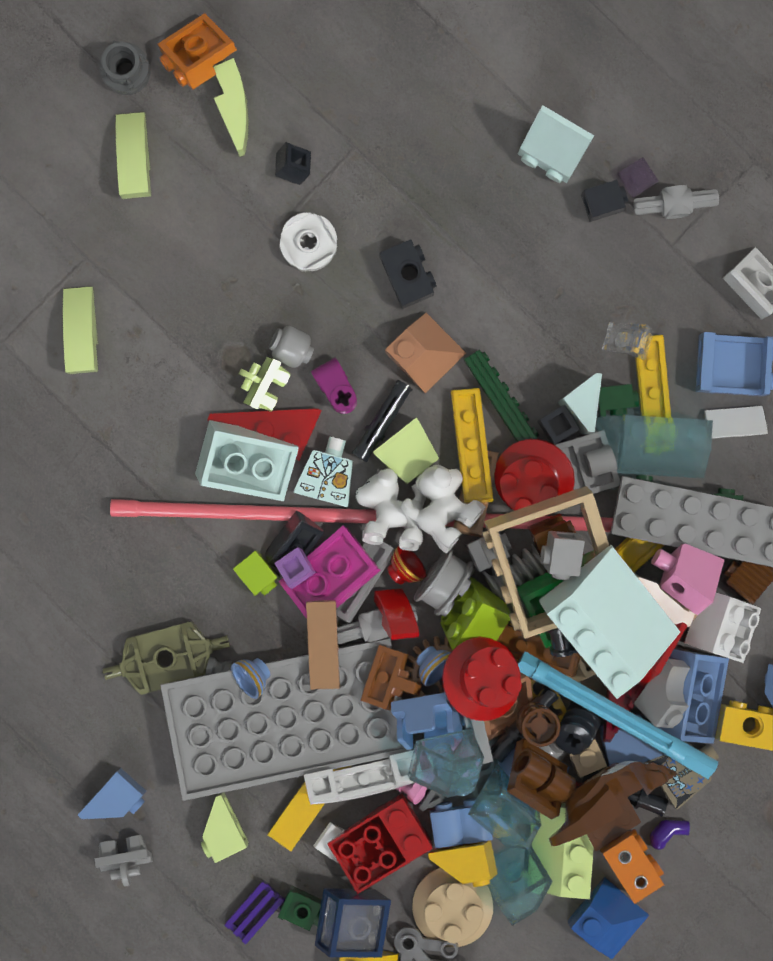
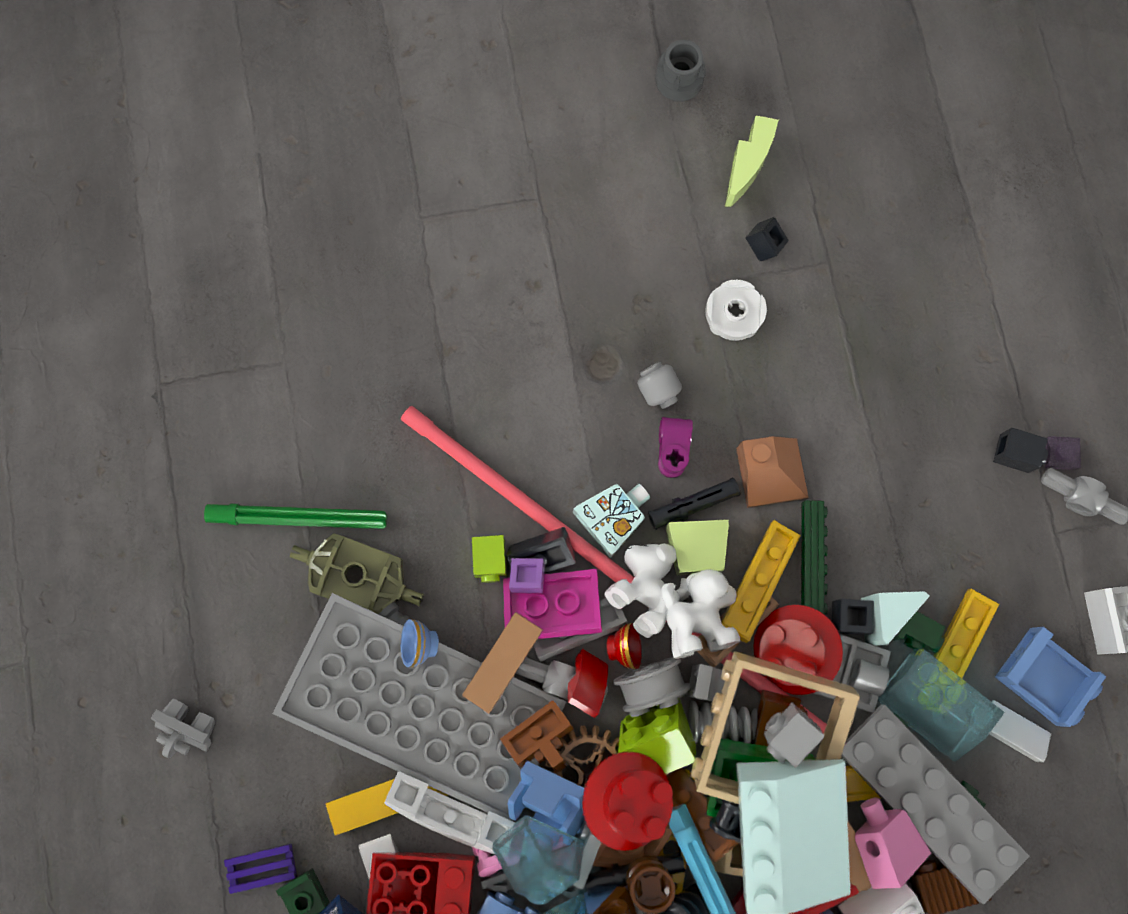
camera: 35 degrees right, 10 degrees down
(41, 677) = (237, 514): none -> green axle
(79, 330) = (488, 250): yellowish green slope -> none
(115, 798) = (217, 668): medium blue slope -> none
(132, 156) = (636, 144): yellowish green slope -> none
(195, 51) = (747, 93): orange plate -> none
(223, 832) = (288, 770): yellowish green slope -> none
(245, 461) = (550, 454): light aqua slope -> none
(269, 372) = (626, 394): yellowish green hips -> none
(285, 425) = (597, 448): red wing -> none
(407, 291) = (795, 409): black brick -> none
(431, 665) = (588, 753): medium blue piece -> none
(554, 145) = (1014, 369): light aqua slope -> none
(628, 339) = (967, 584): clear slope -> none

